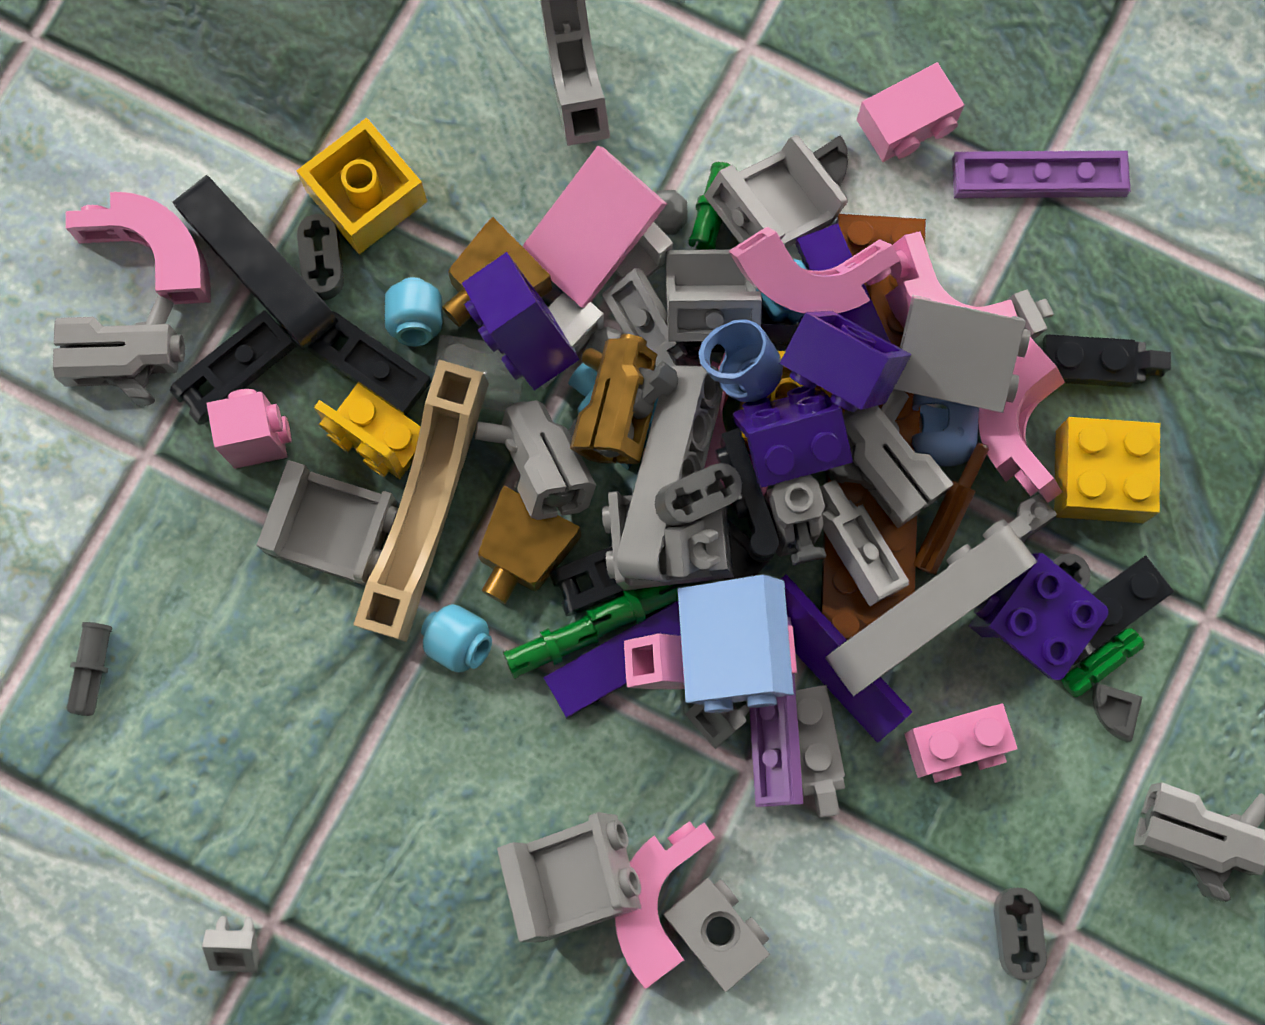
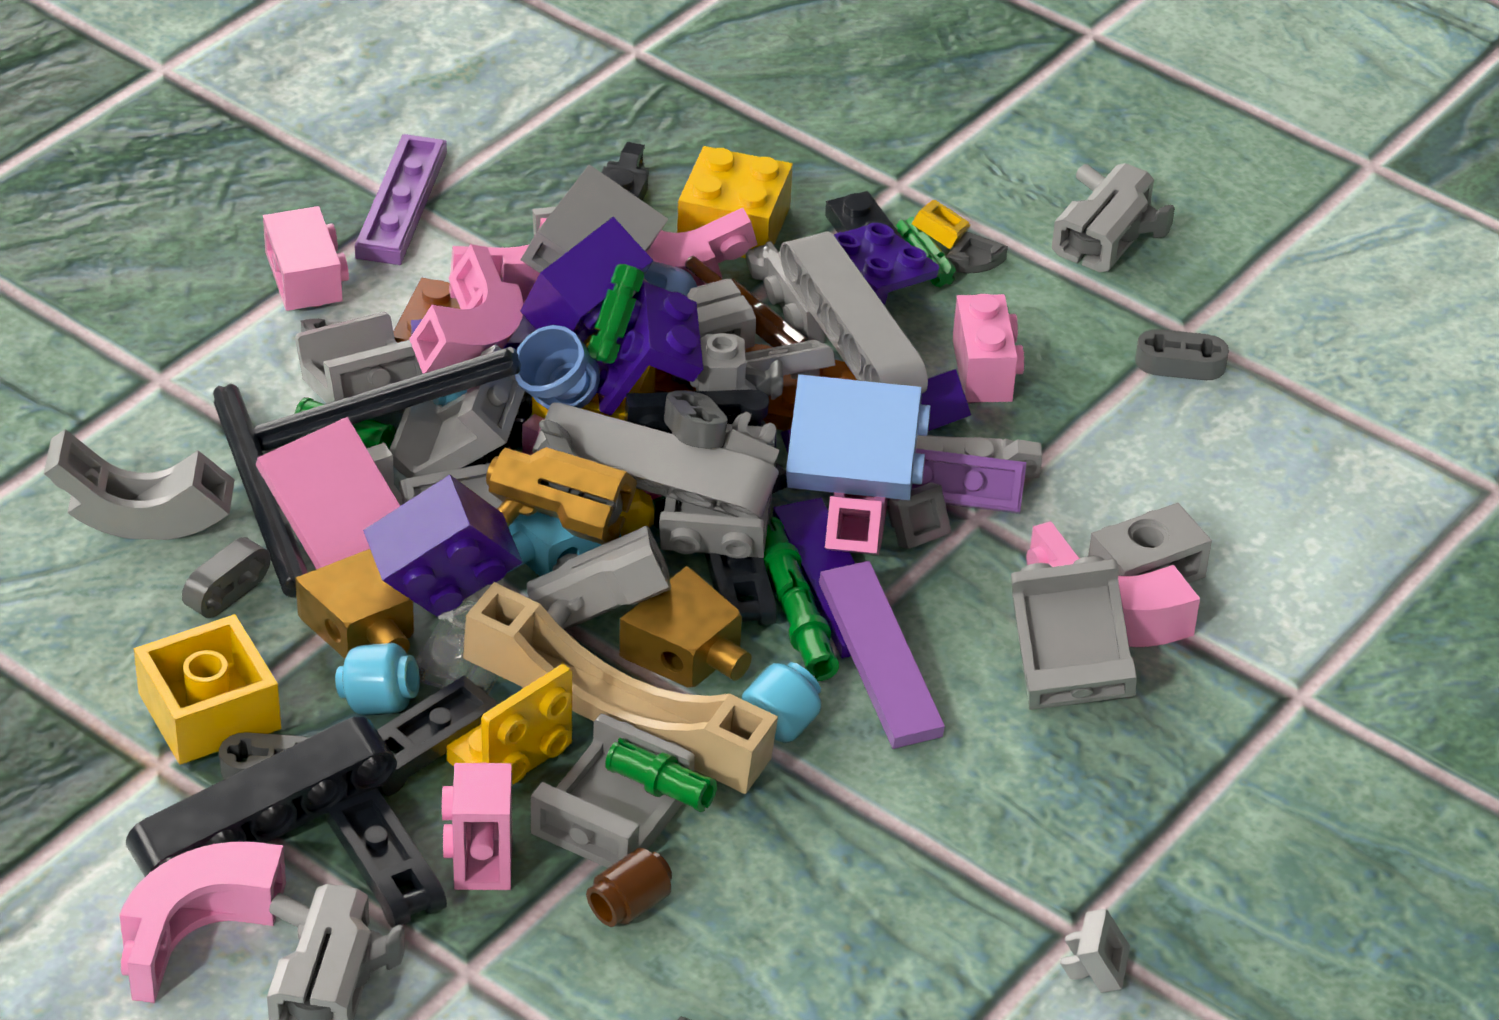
camera: 80 degrees left, 35 degrees down
(230, 558) = (630, 887): none -> reddish brown brick
(341, 557) = (661, 774): none -> green pin
(505, 165) = (226, 577): none -> dark grey beam
(534, 711) = (881, 655): none -> medium lavender tile
(640, 152) = (269, 516): none -> black axle
(698, 234) = (391, 397): none -> black axle
(793, 392) = (615, 313): none -> green axle
(1140, 671) = (941, 223): none -> yellow tile

